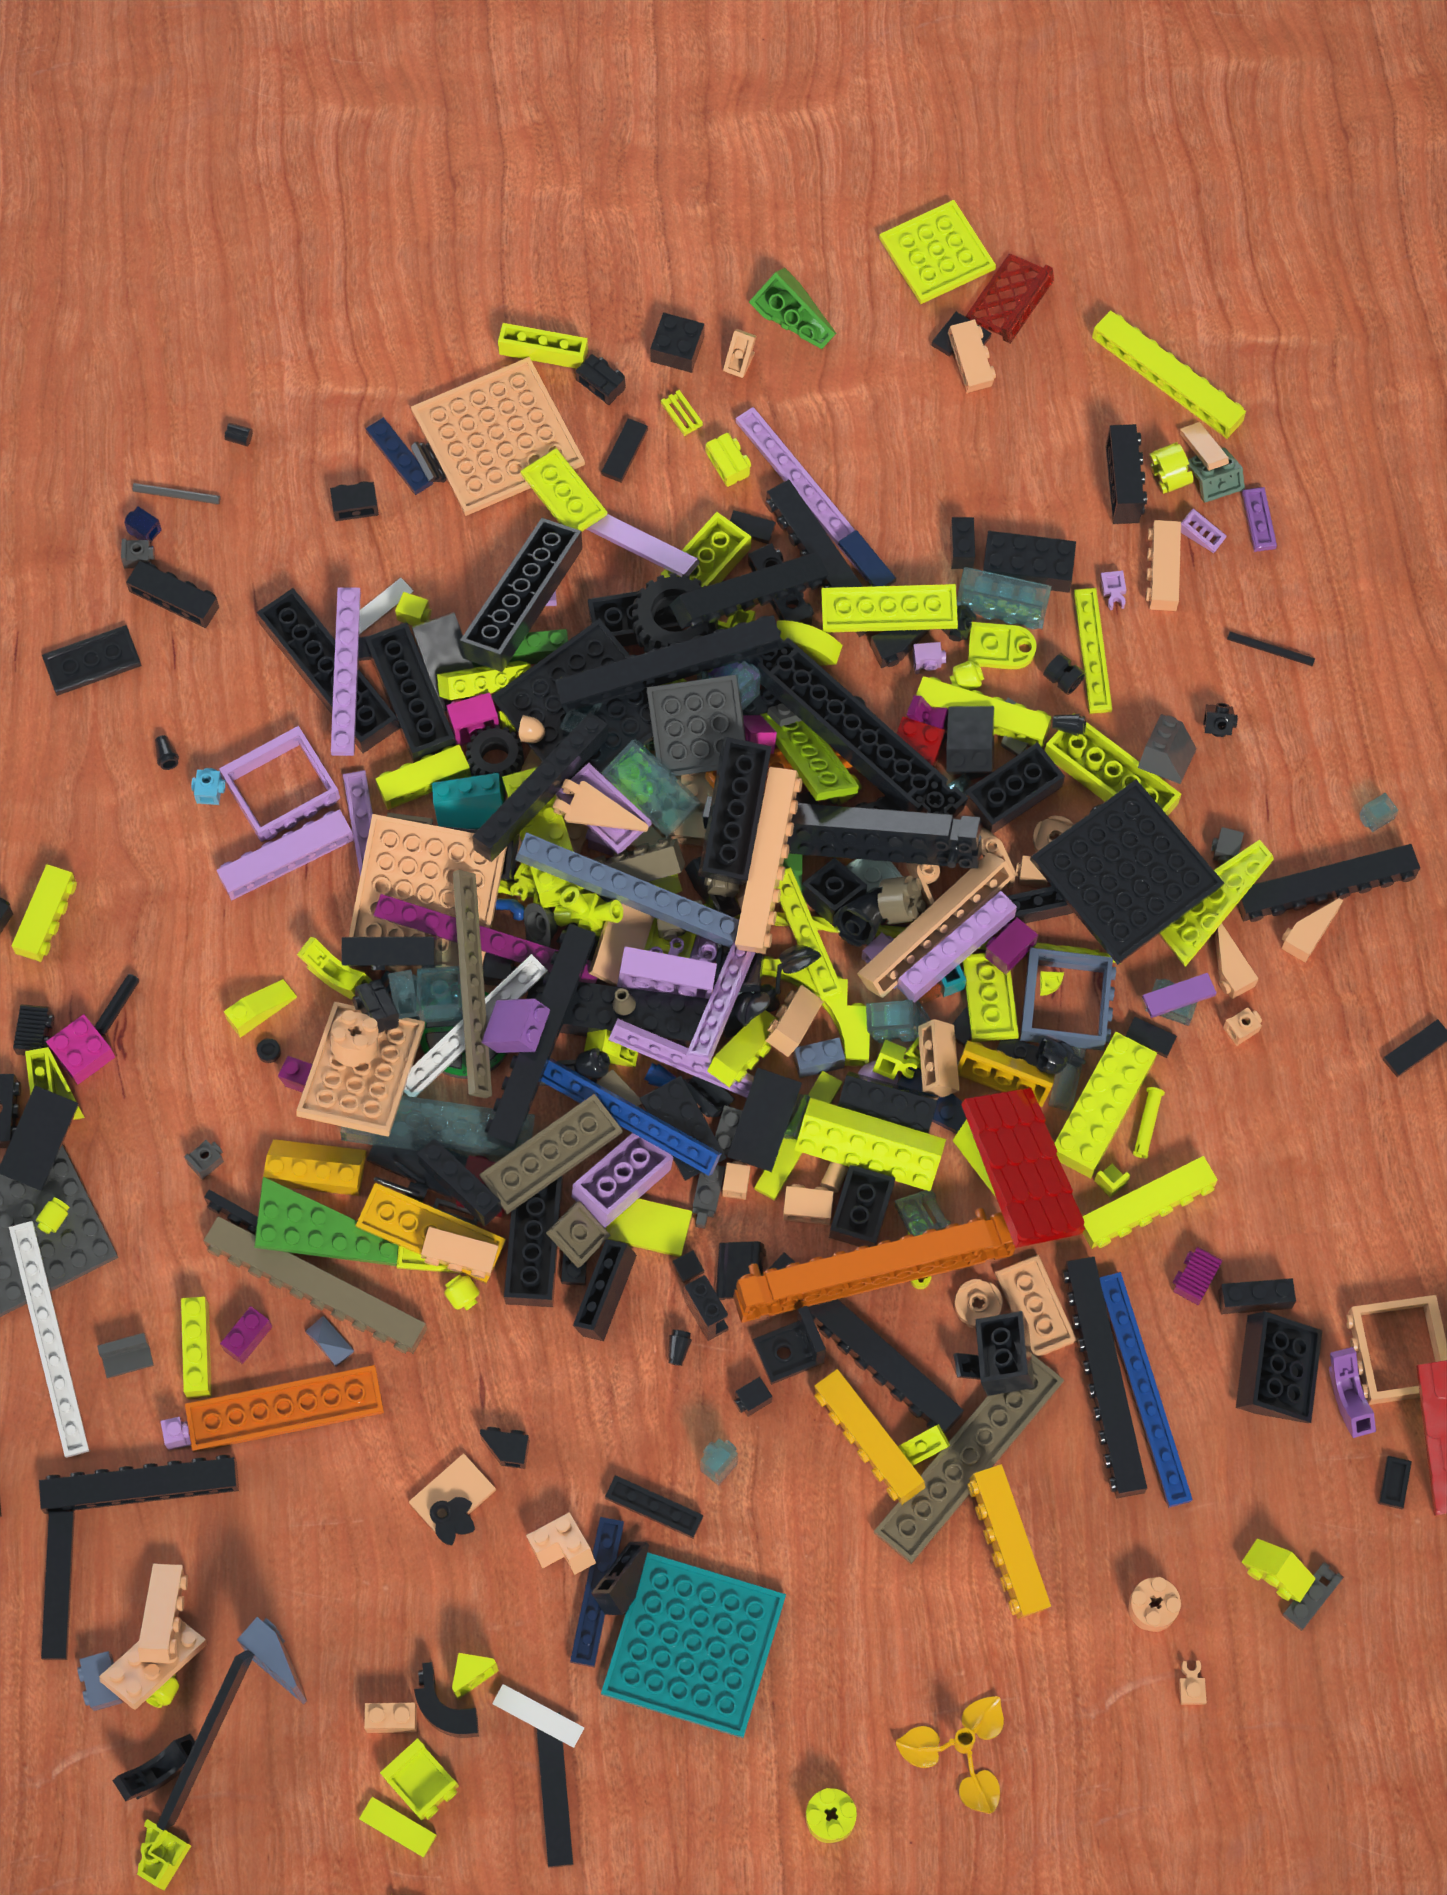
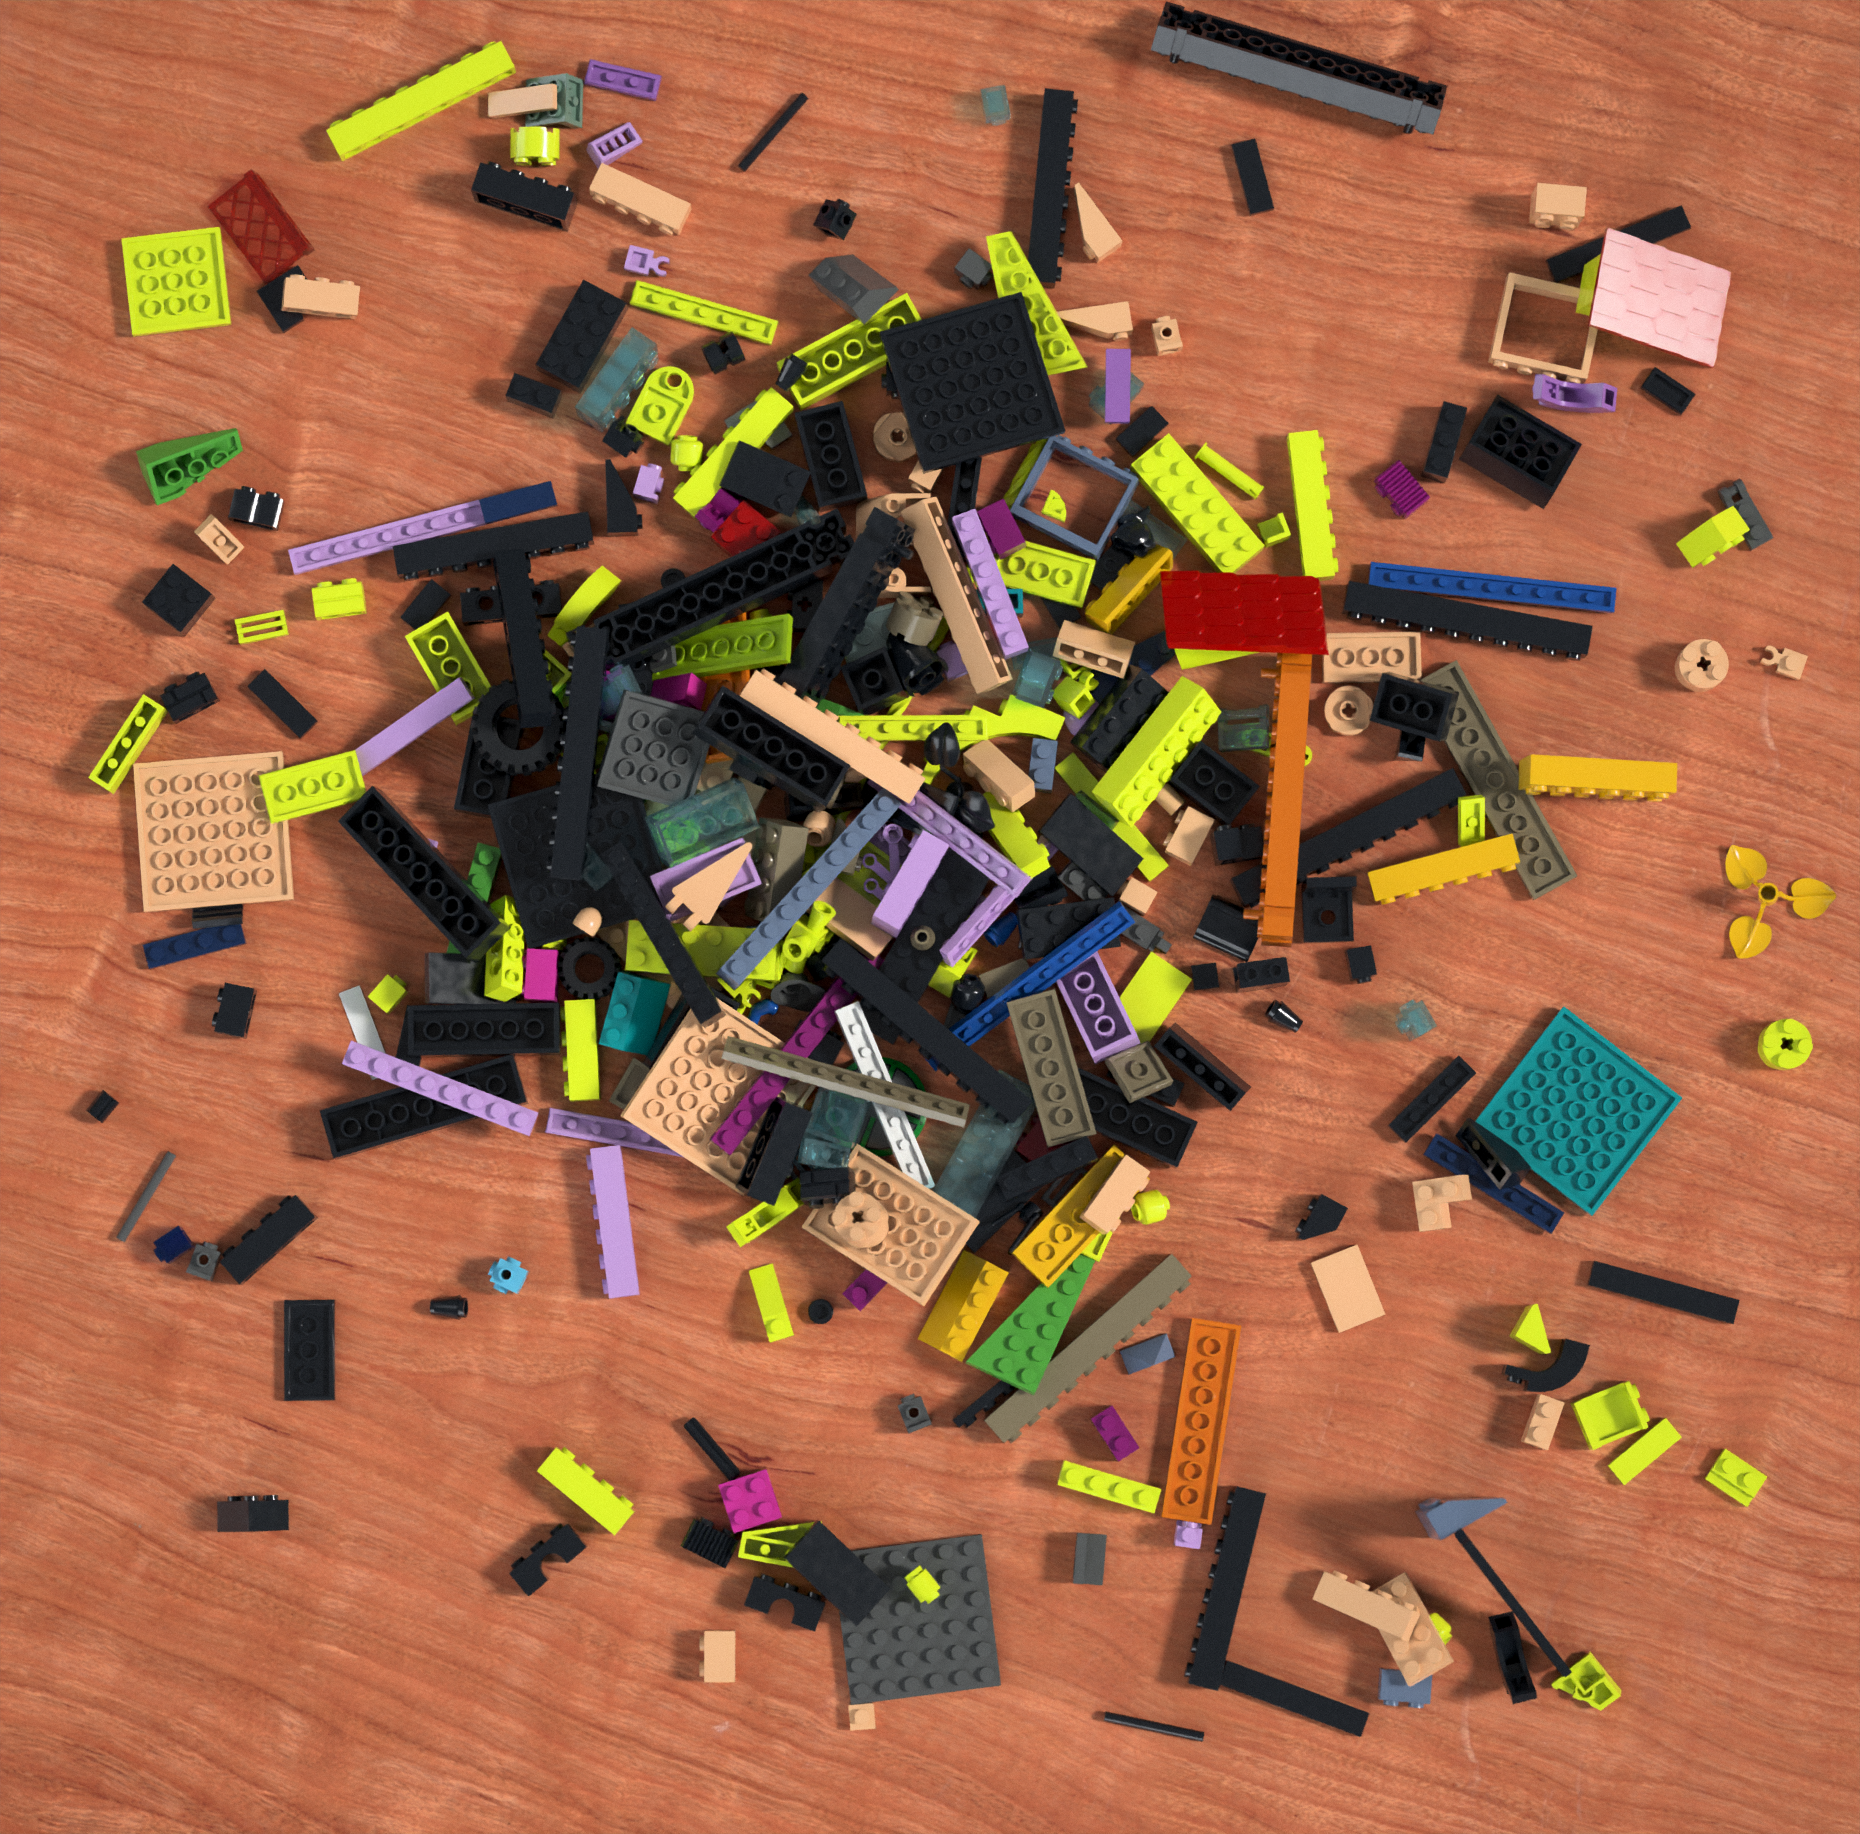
camera: 75 degrees left, 15 degrees up
(49, 1339) = (1046, 1628): white plate -> none
(265, 754) = (492, 1205): lavender window -> none
(455, 1521) = (1376, 1295): black plate -> none
(515, 1025) = (912, 1054): medium lavender brick -> none
(538, 1715) = (1590, 1282): white sticker -> none
(687, 887) = (820, 827): none -> light nougat head
(777, 373) = (256, 508): none -> black brick
(812, 1239) = (1237, 845): none -> black brick
(889, 608) = (586, 502): neon yellow plate -> none

